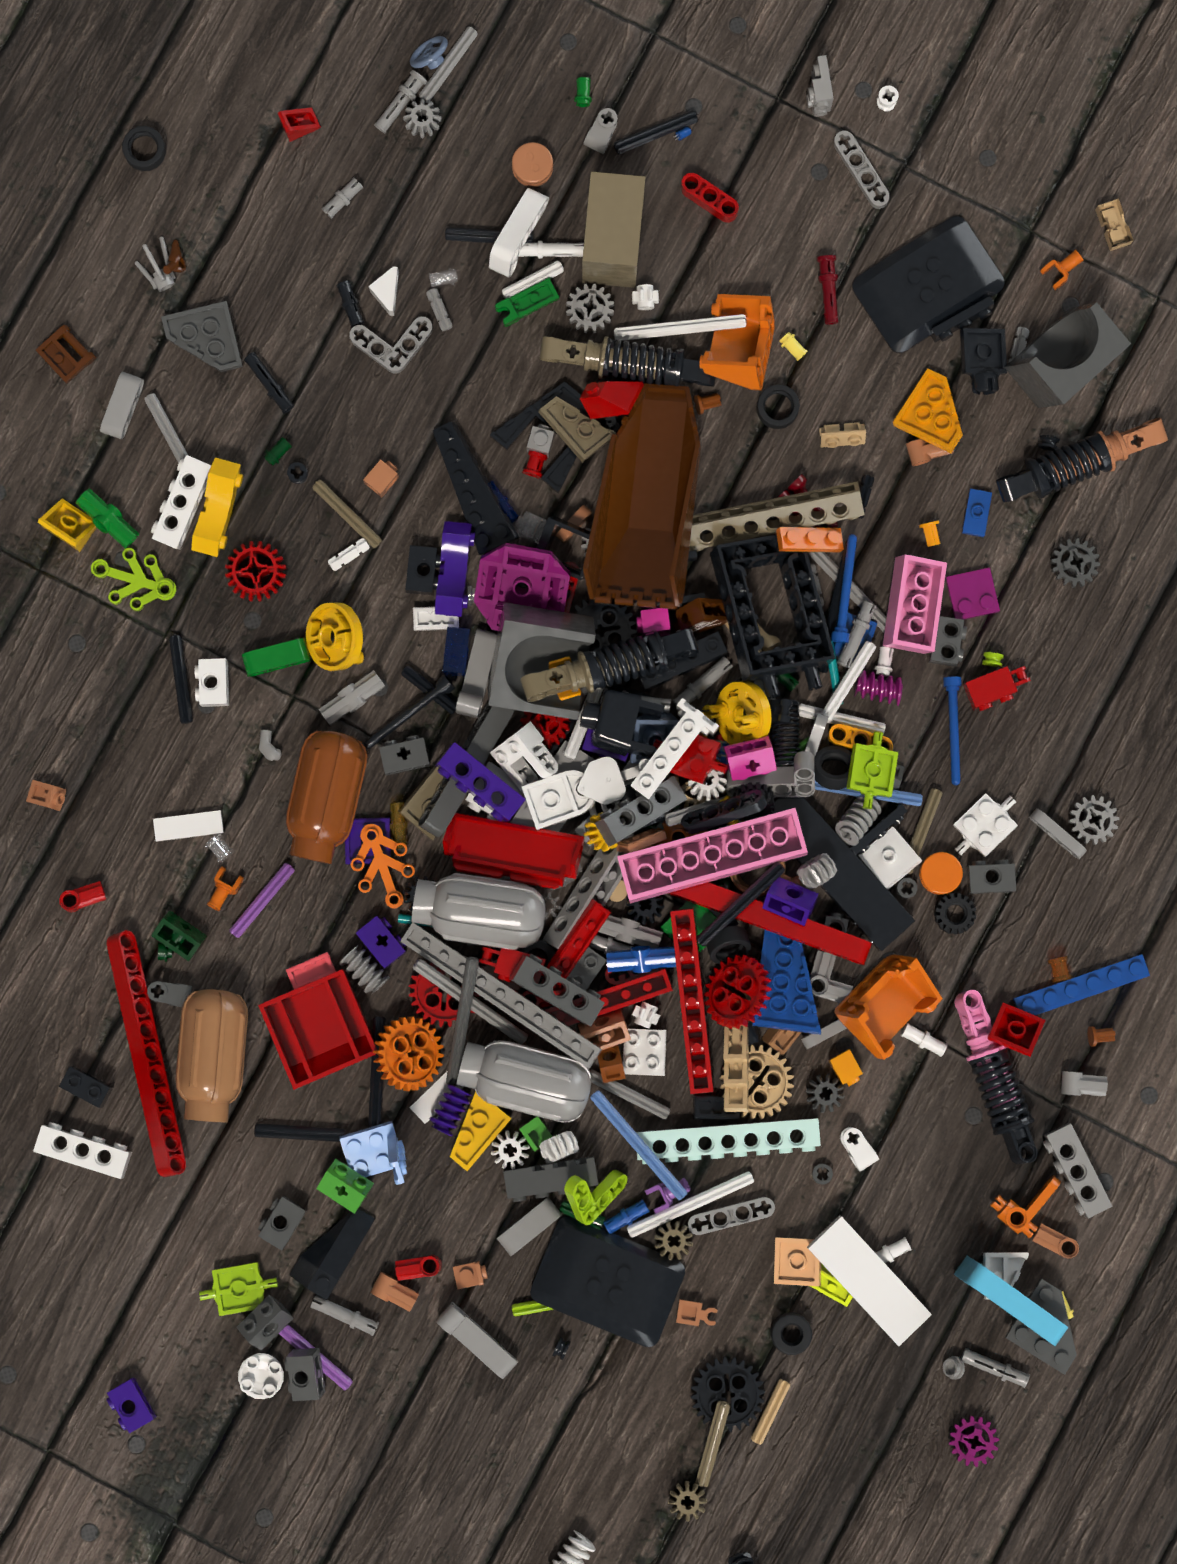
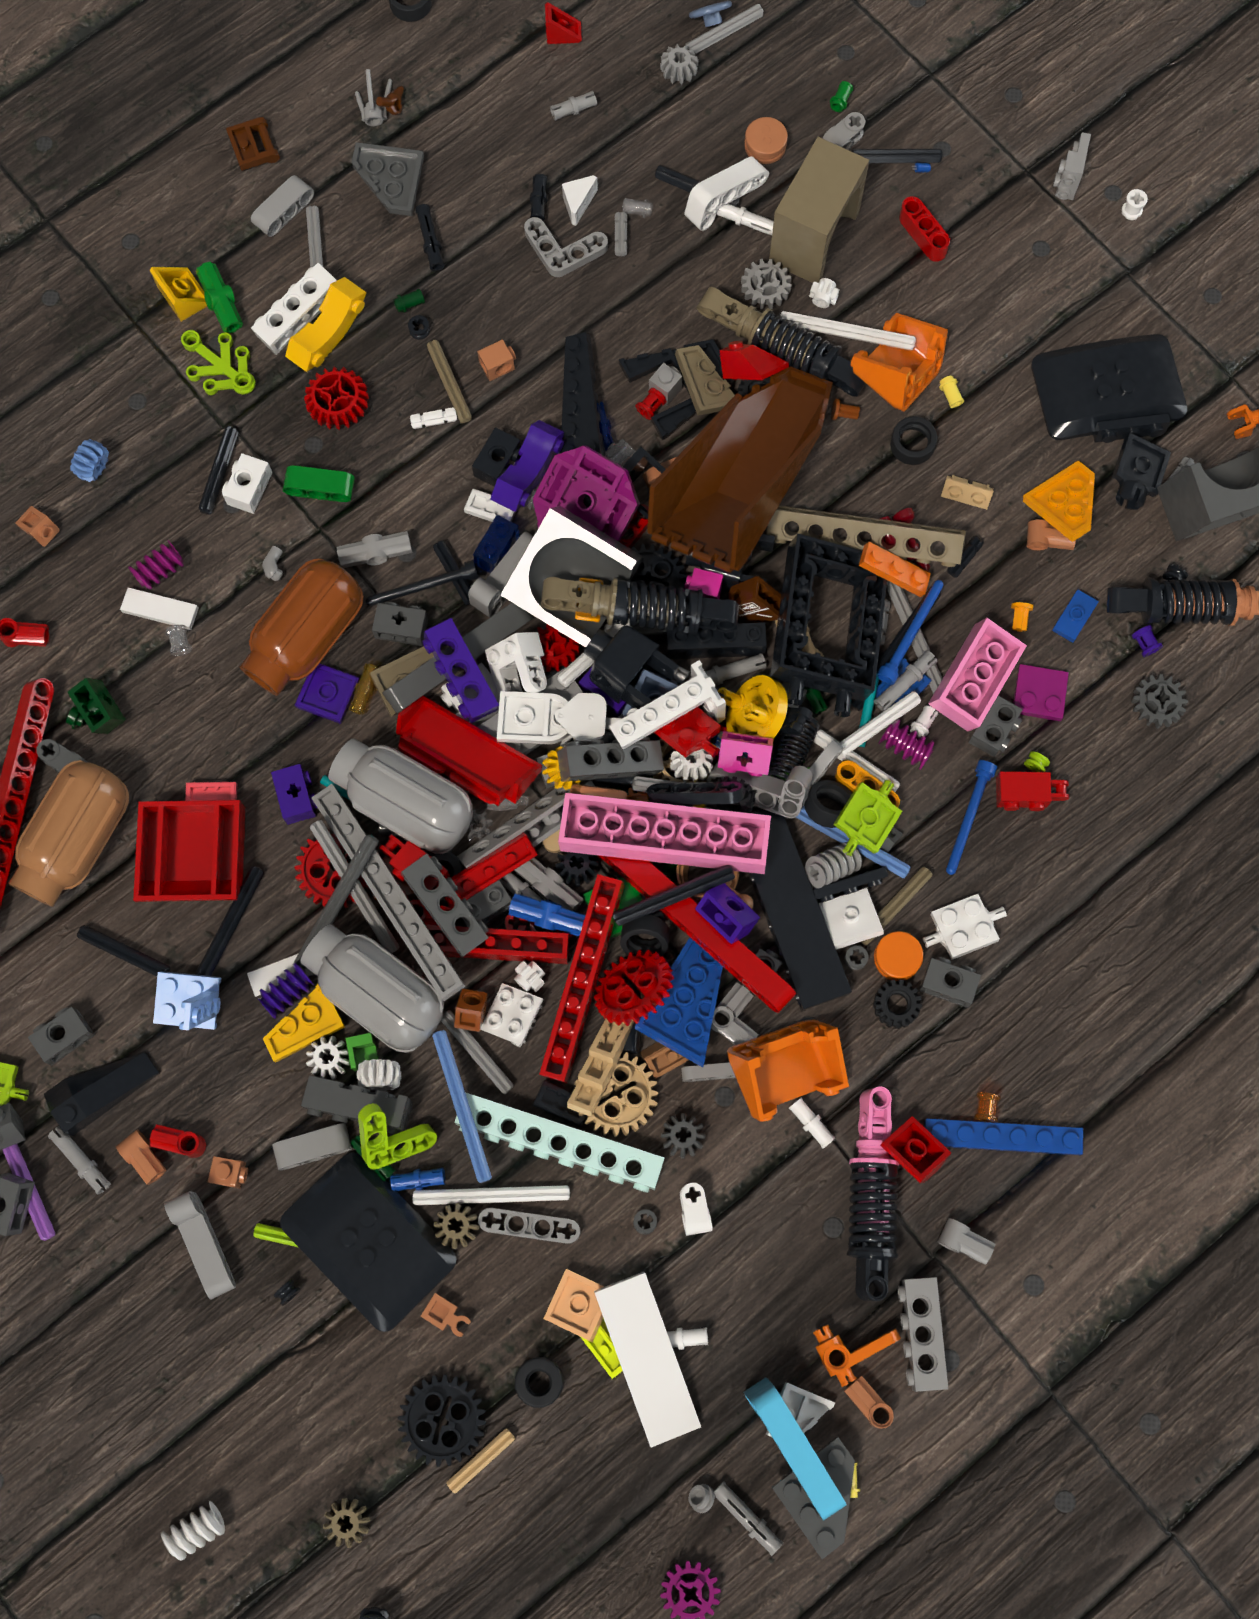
camera: 25 degrees right, 10 degrees down
(66, 719) = (89, 460): none -> medium blue gear
(170, 790) = (157, 565): none -> magenta piece
(223, 890) = (163, 681): orange piece -> none
(262, 900) = (196, 707): medium lavender axle -> none
(345, 1186) = (141, 1023): bright green brick -> none
(347, 632) = (385, 479): yellow piece -> none
(364, 970) = (261, 814): light grey piece -> none
(381, 861) = (328, 715): orange plant -> none
(391, 1058) = (246, 908): orange gear -> none
(407, 91) = (674, 36): light grey pin -> none
(527, 301) = (707, 257): green plate -> none
(547, 272) = (721, 241): white axle -> none
(606, 1030) = (481, 974): nougat brick -> none
(666, 1194) = (469, 1173): medium lavender piece -> none
(712, 1443) = (401, 1469): dark tan axle -> none
(817, 871) = (768, 895): light grey gear -> none
(828, 279) = (1011, 342): dark red pin -> none
(846, 1068) = (716, 1118): light orange brick -> none
(864, 168) = (1085, 259): light grey beam -> none
(1046, 512) = (1147, 640): none -> dark purple bush
(1057, 833) = (1038, 965): light grey beam -> none
(1088, 811) = (1083, 976): light grey gear -> none
(1100, 1035) = (1004, 1196): dark orange piece -> none

